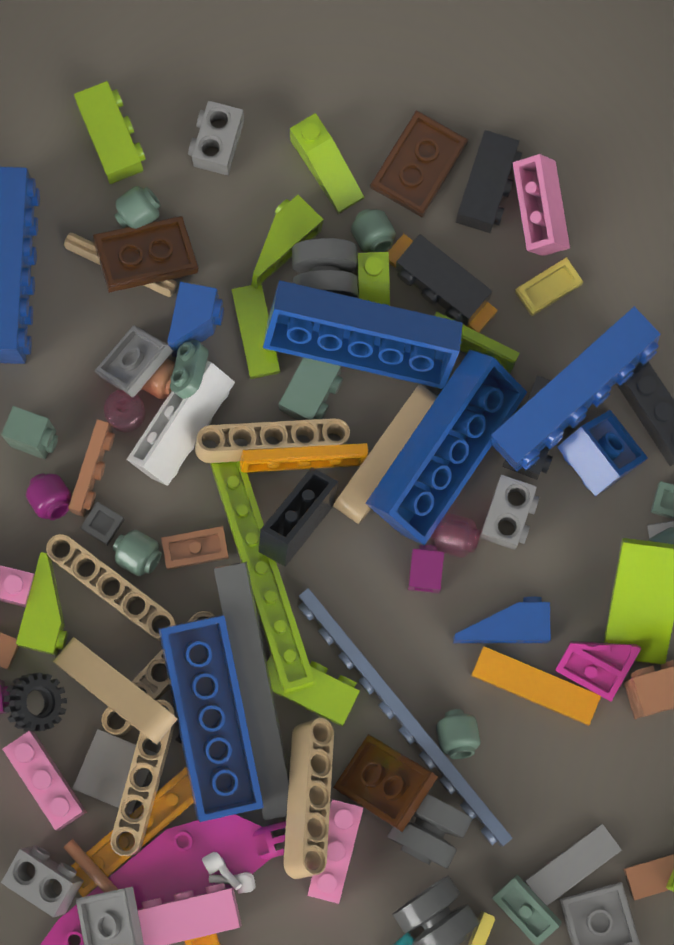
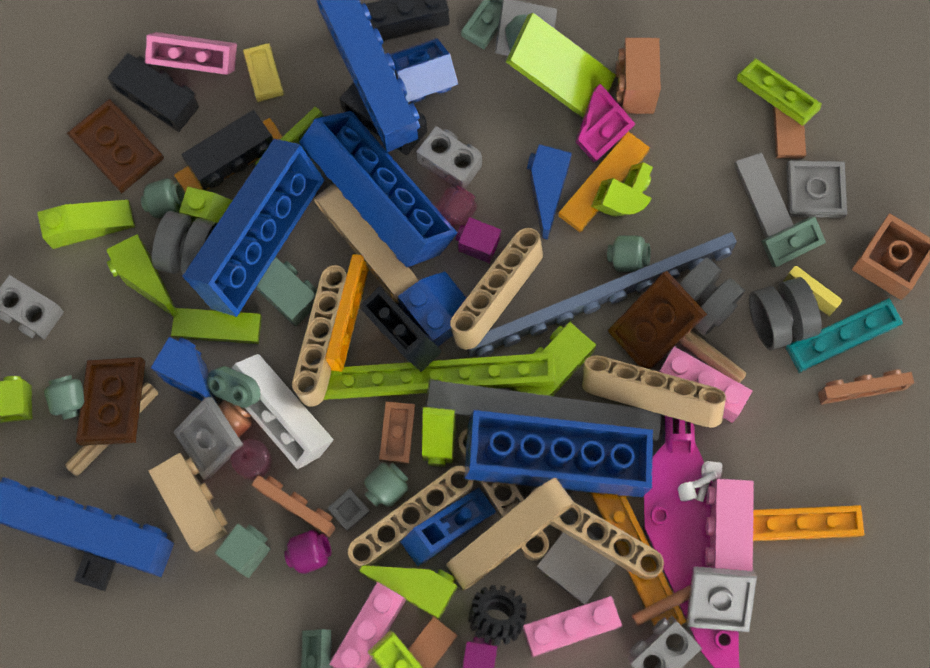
camera: 70 degrees left, 5 degrees down
(66, 364) = (189, 501): none -> tan brick
(112, 627) = (447, 526): none -> blue slope
(195, 590) = (438, 436): none -> lime slope
(339, 549) = (432, 305): none -> blue slope
(370, 857) = (712, 356): none -> tan axle
(388, 600) = (496, 288): none -> tan beam
(516, 714) = (624, 198): none -> lime brick

